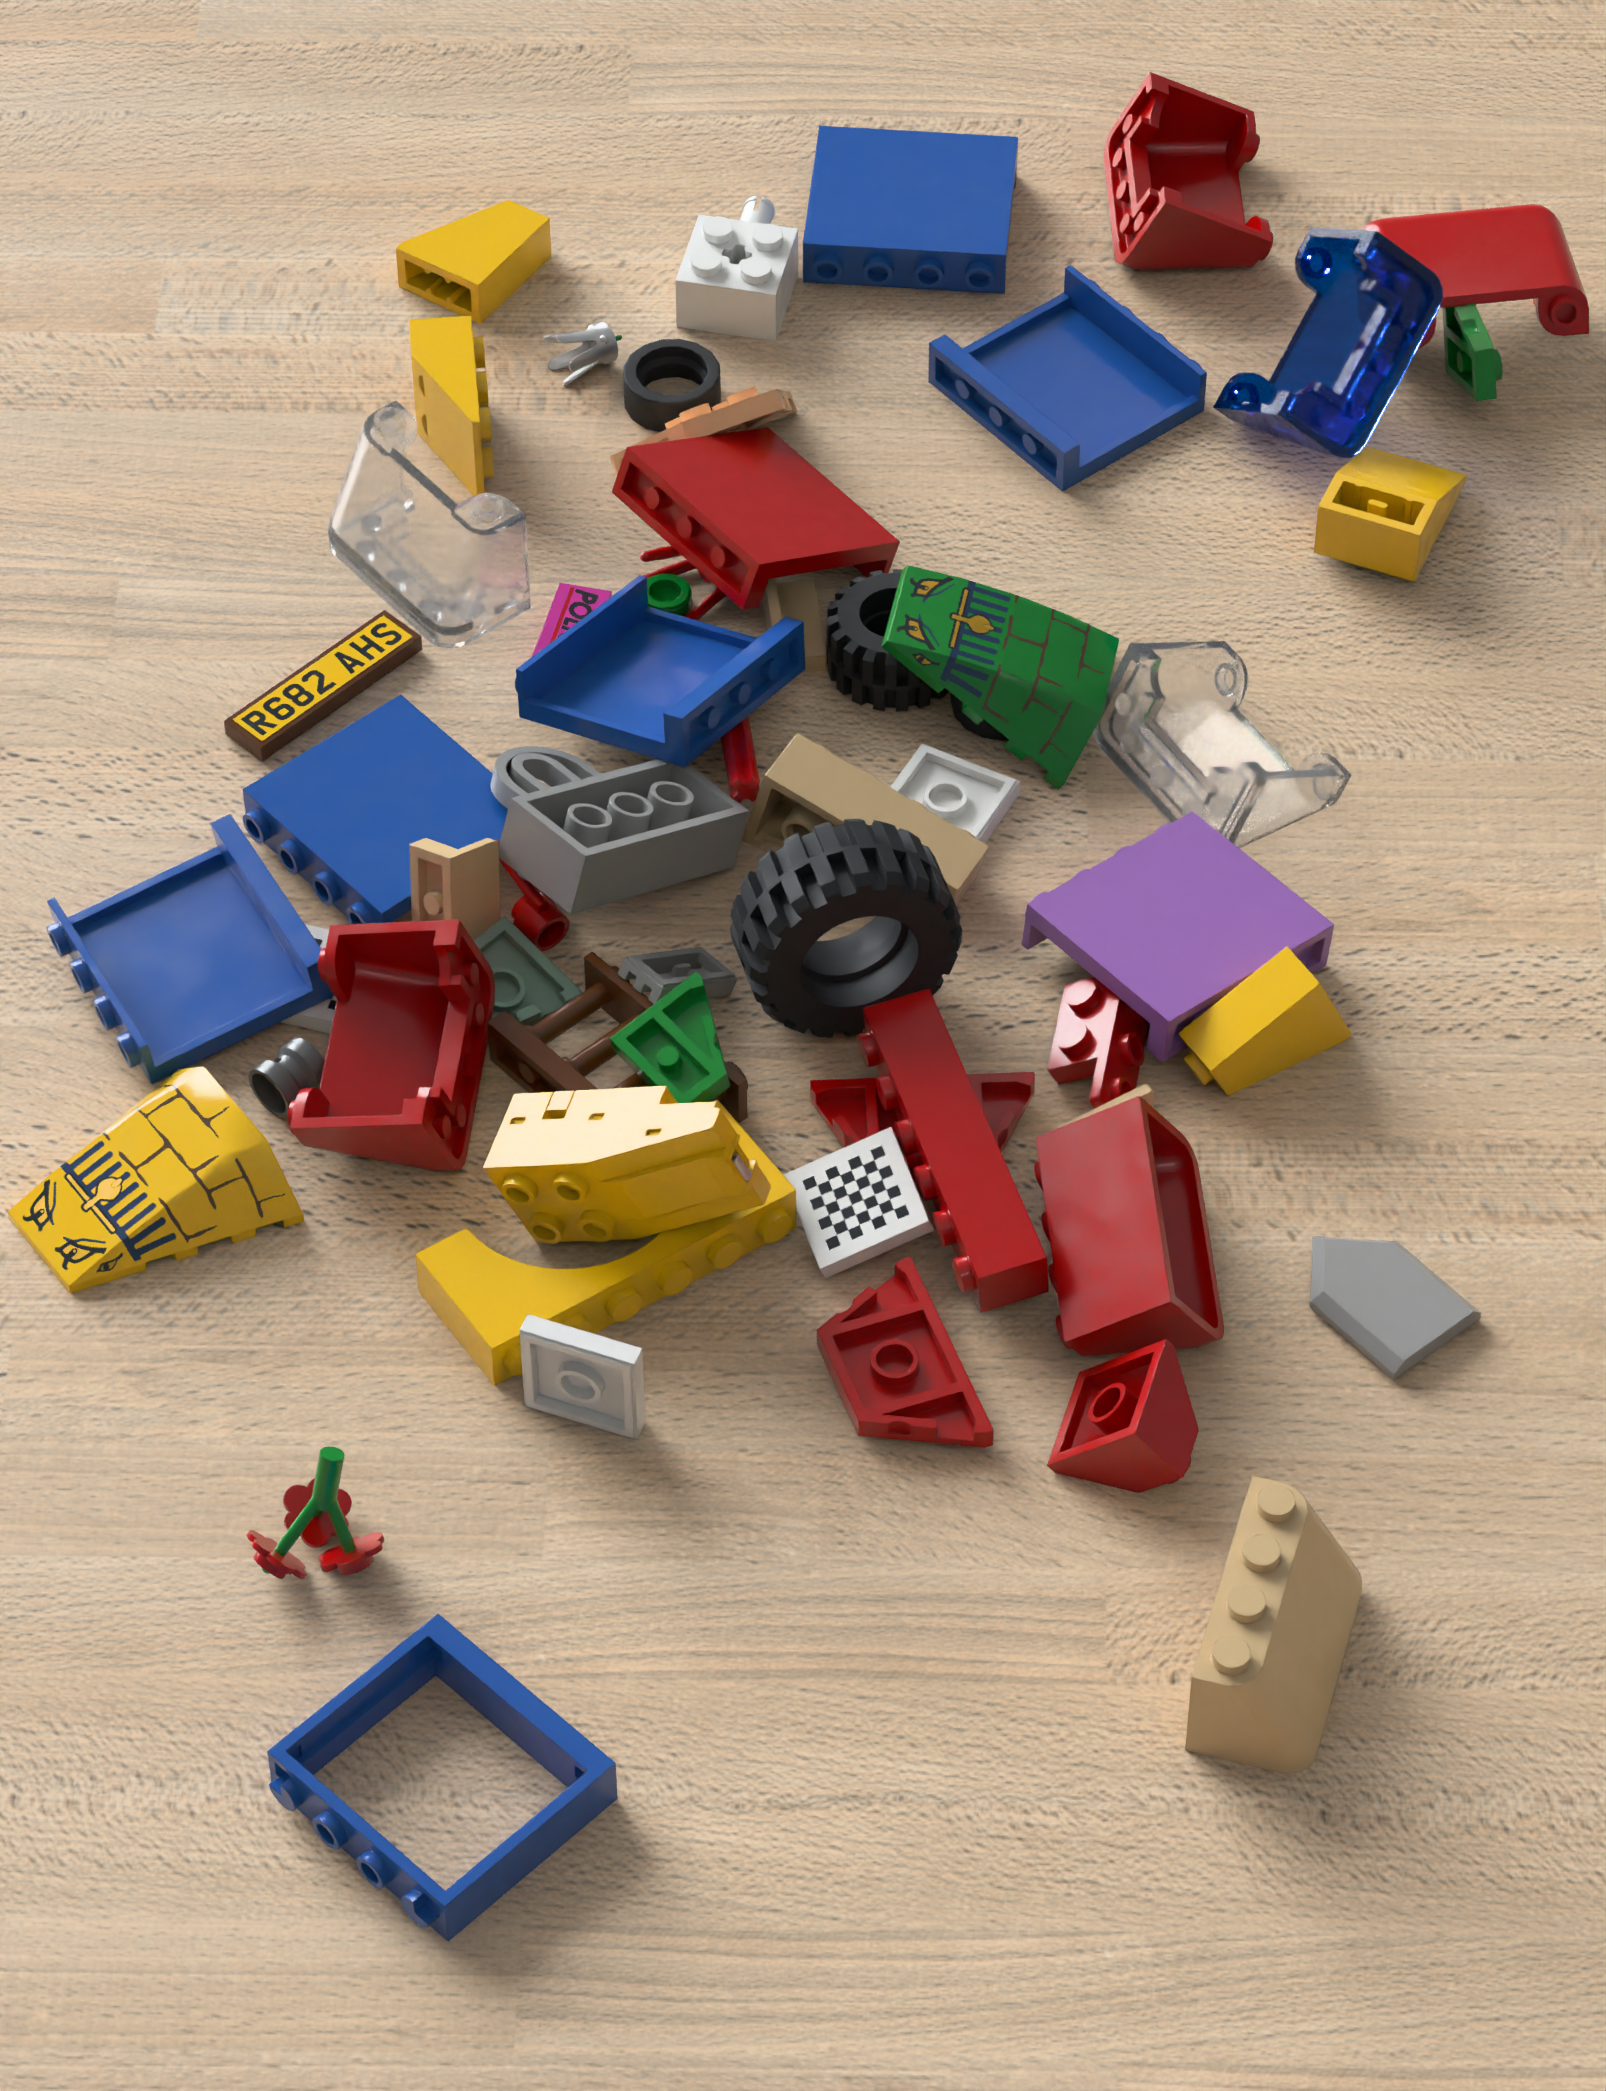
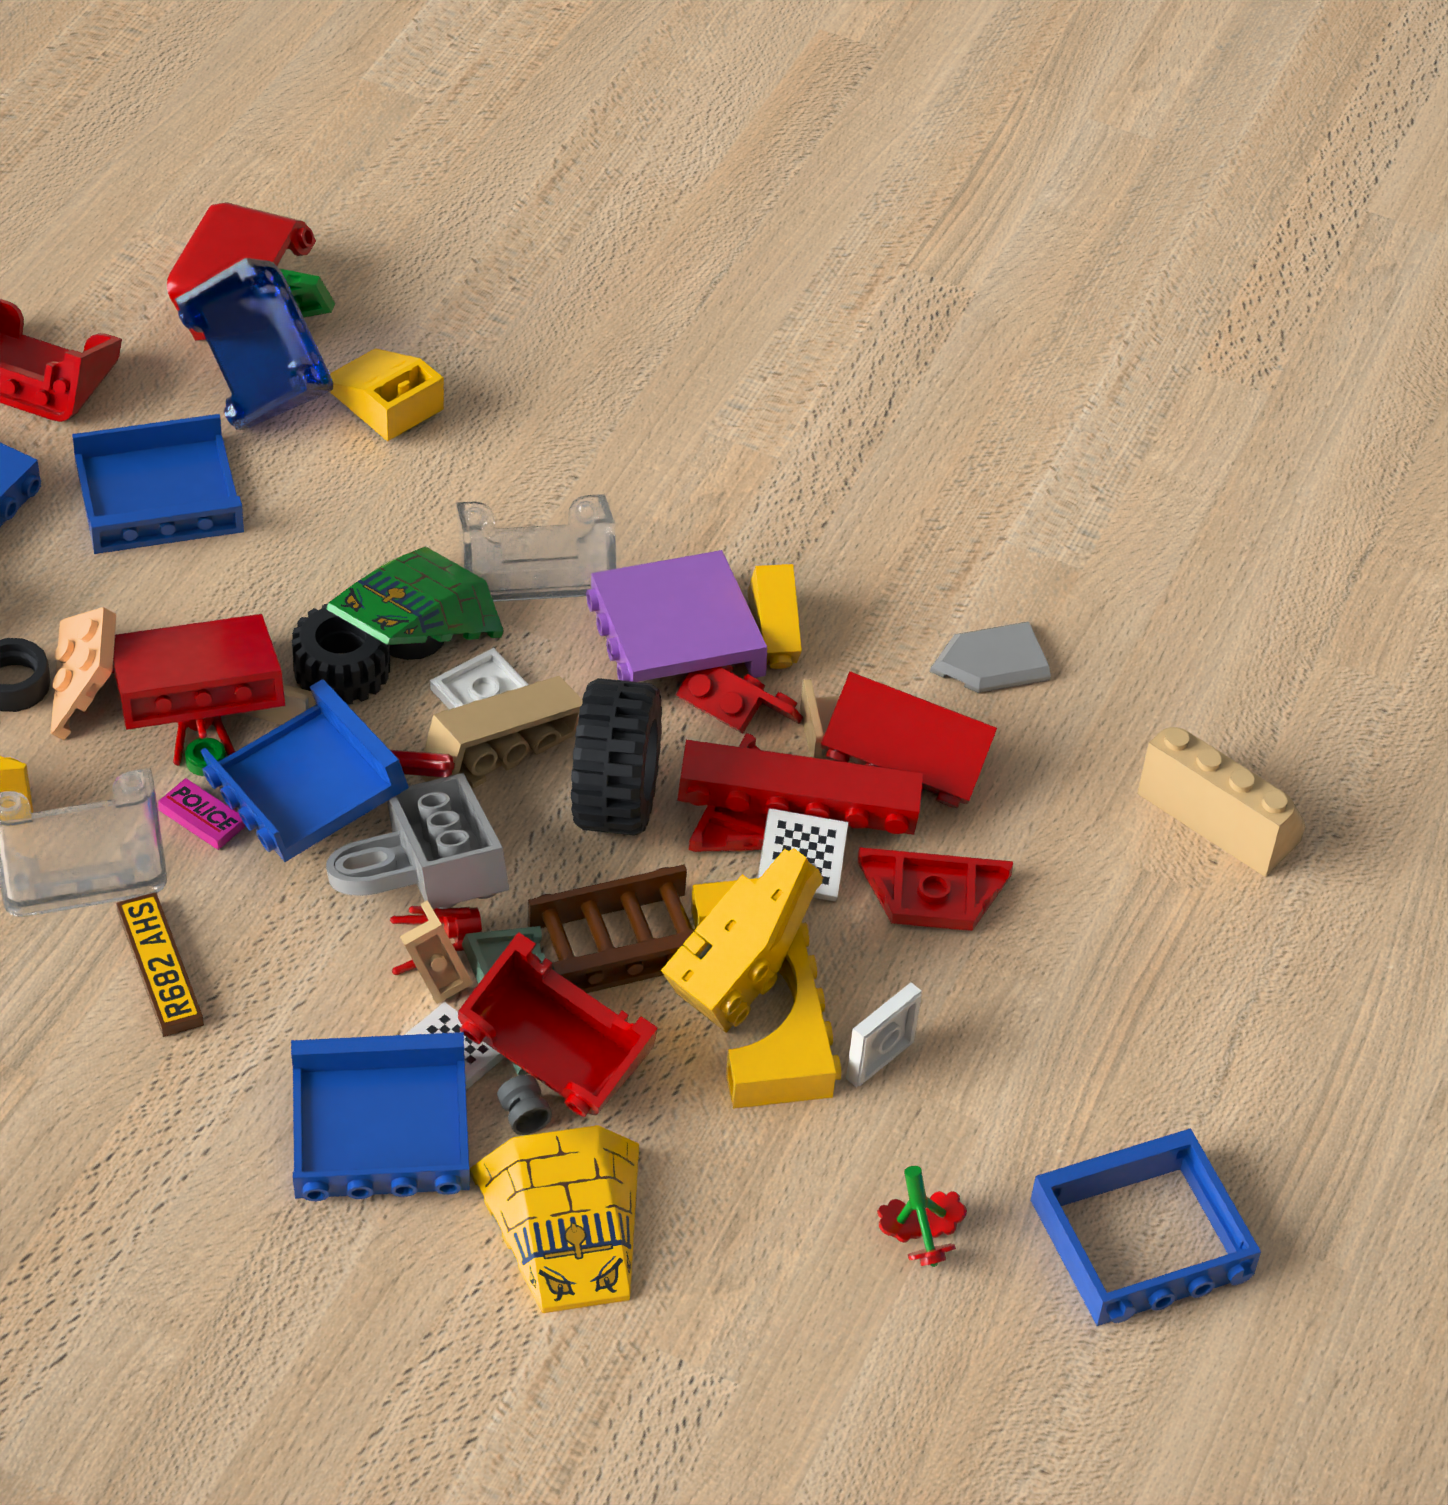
camera: 70 degrees left, 0 degrees up
(360, 800) = (325, 968): blue panel -> none
(666, 970) = (557, 870): light grey tile -> none
(677, 1045) = (646, 886): green wing -> none
(1128, 1422) = (1033, 800): red slope -> none

